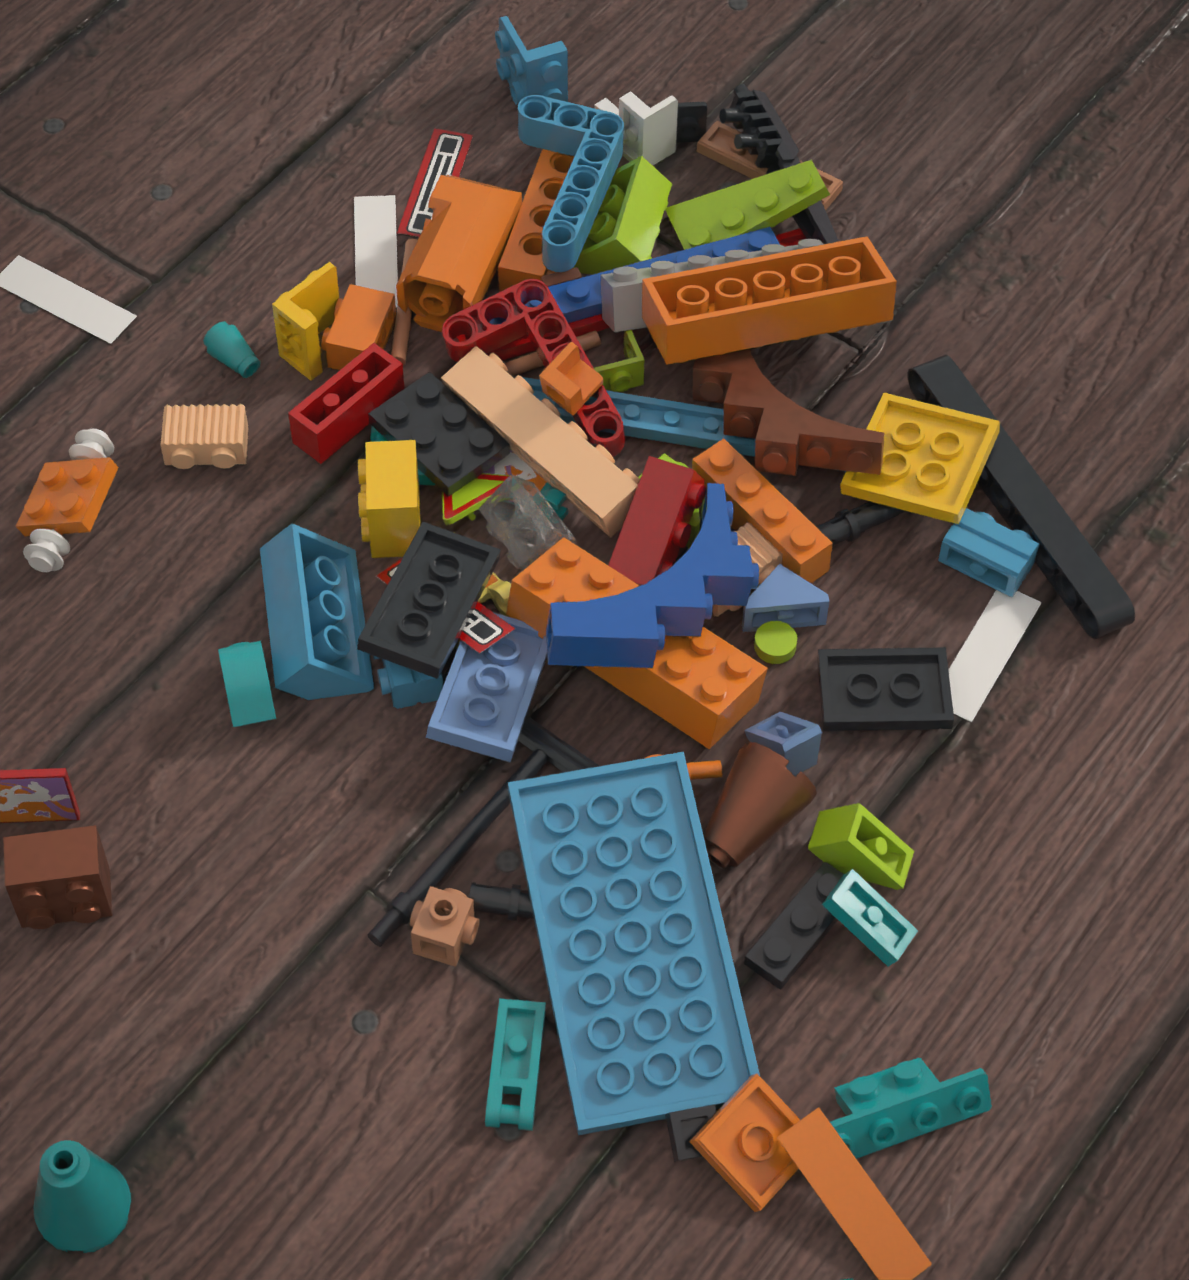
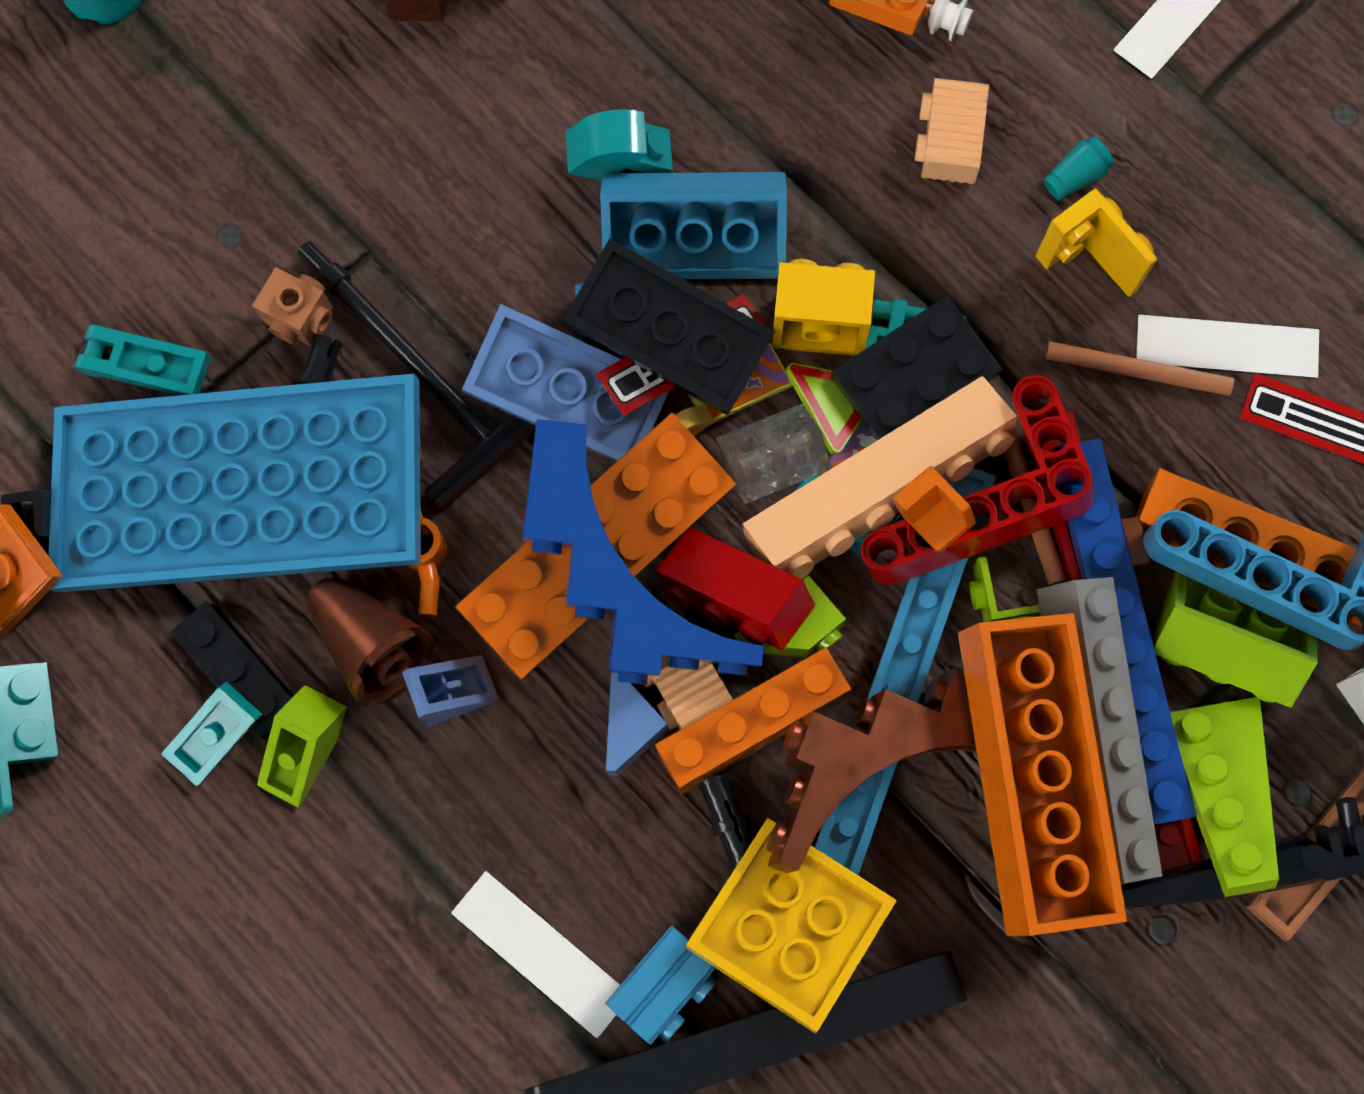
camera: 105 degrees right, 20 degrees up
(342, 403) = (973, 277): red brick -> none
(359, 320) = (1091, 307): orange brick -> none
(457, 249) = (1195, 426): orange brick -> none
(775, 642) = (586, 710): lime tile -> none
(885, 689) = (497, 818): black plate -> none

